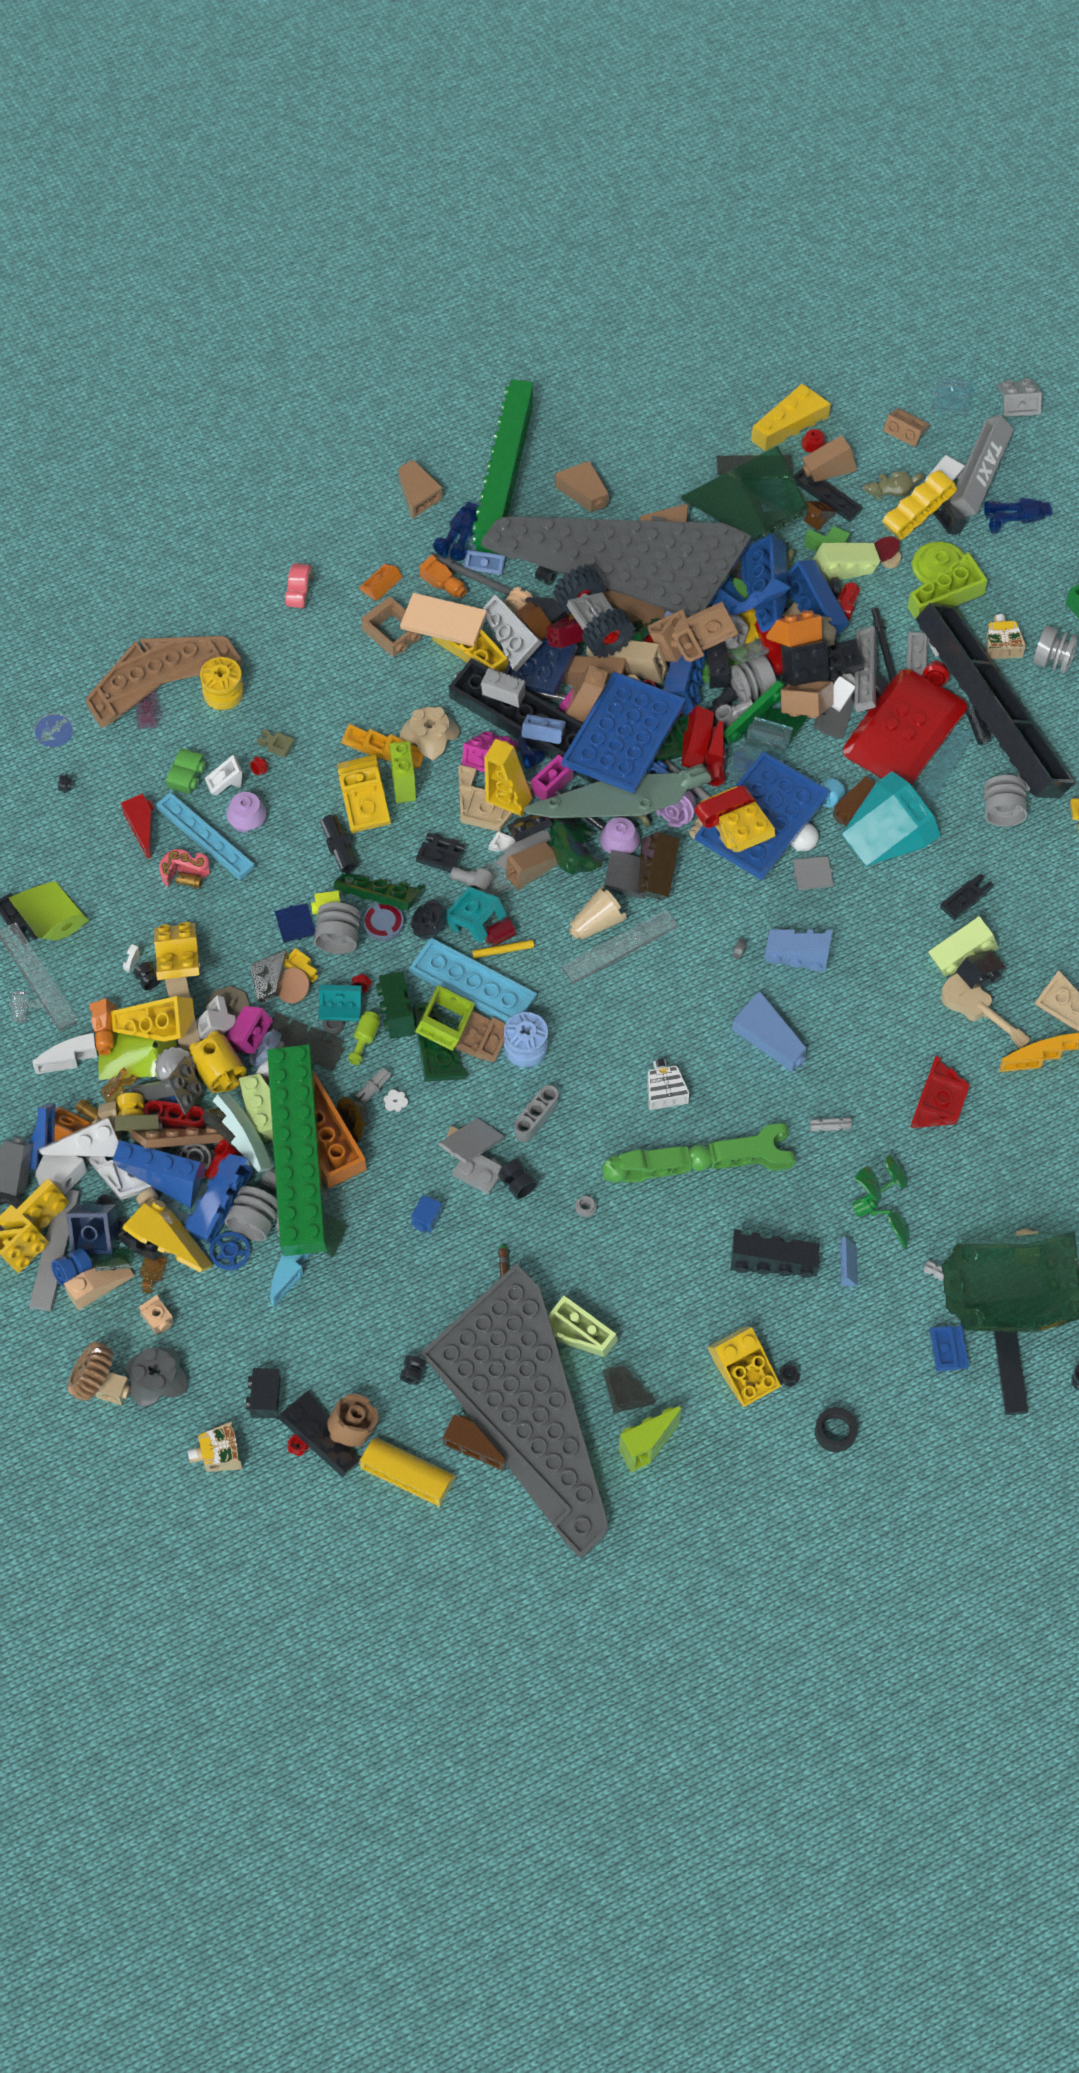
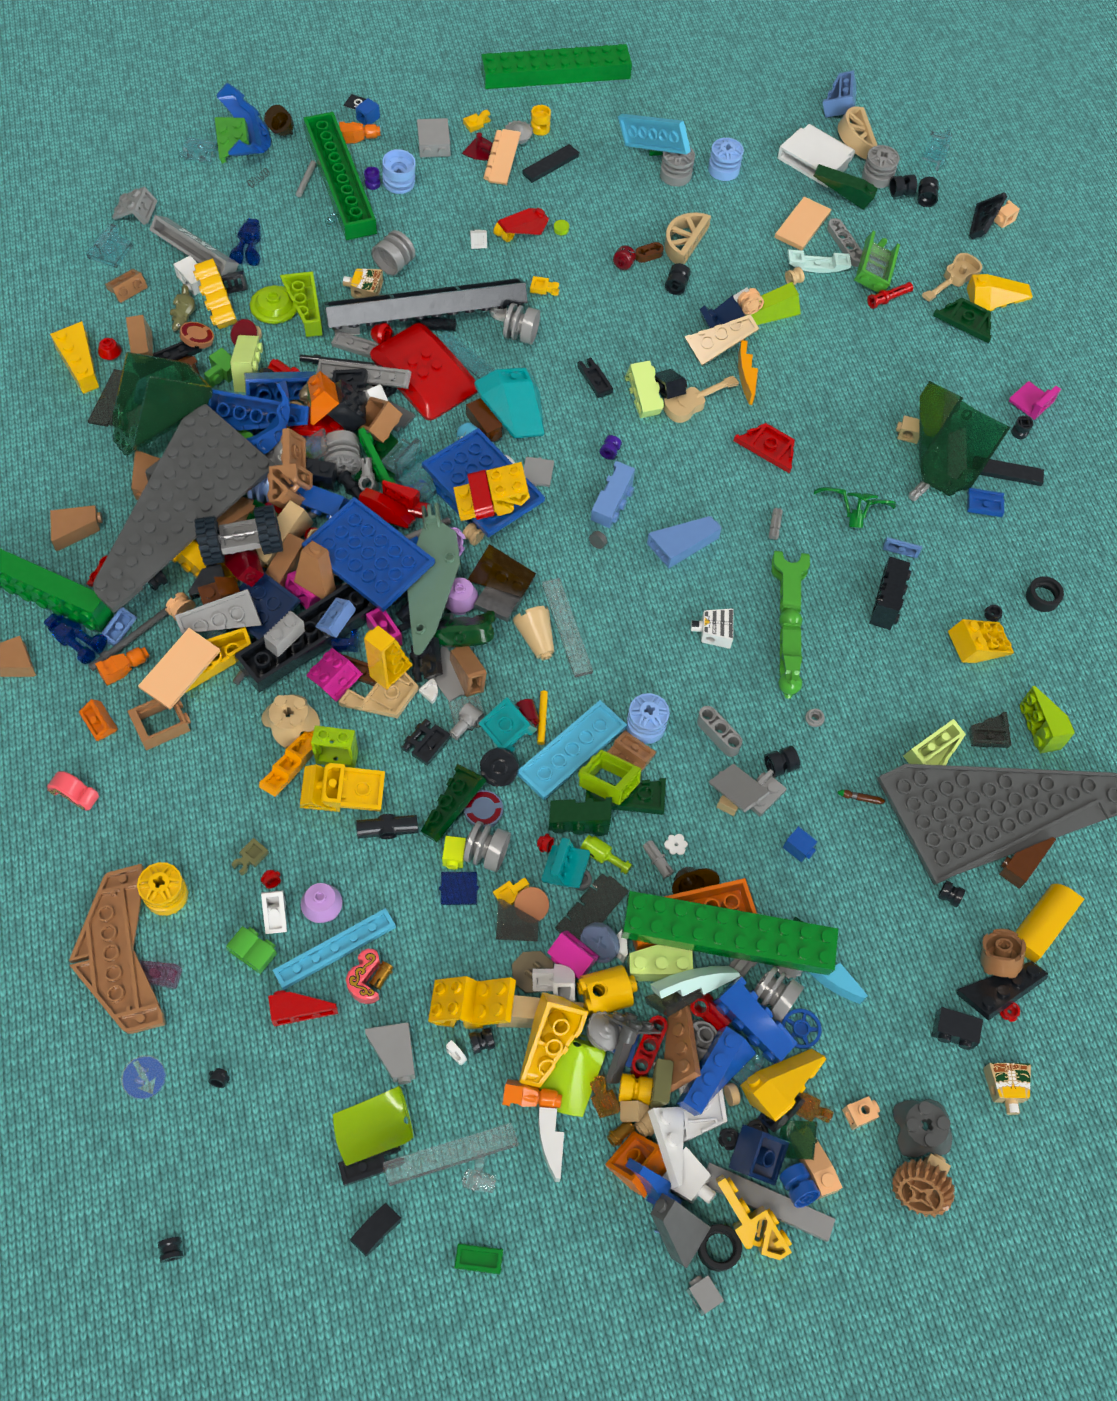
camera: 80 degrees left, 0 degrees up
(119, 909) = (394, 1050): none -> light grey slope
(862, 508) = (196, 335): none -> nougat tile
(866, 929) = (610, 447): none -> dark purple wheel

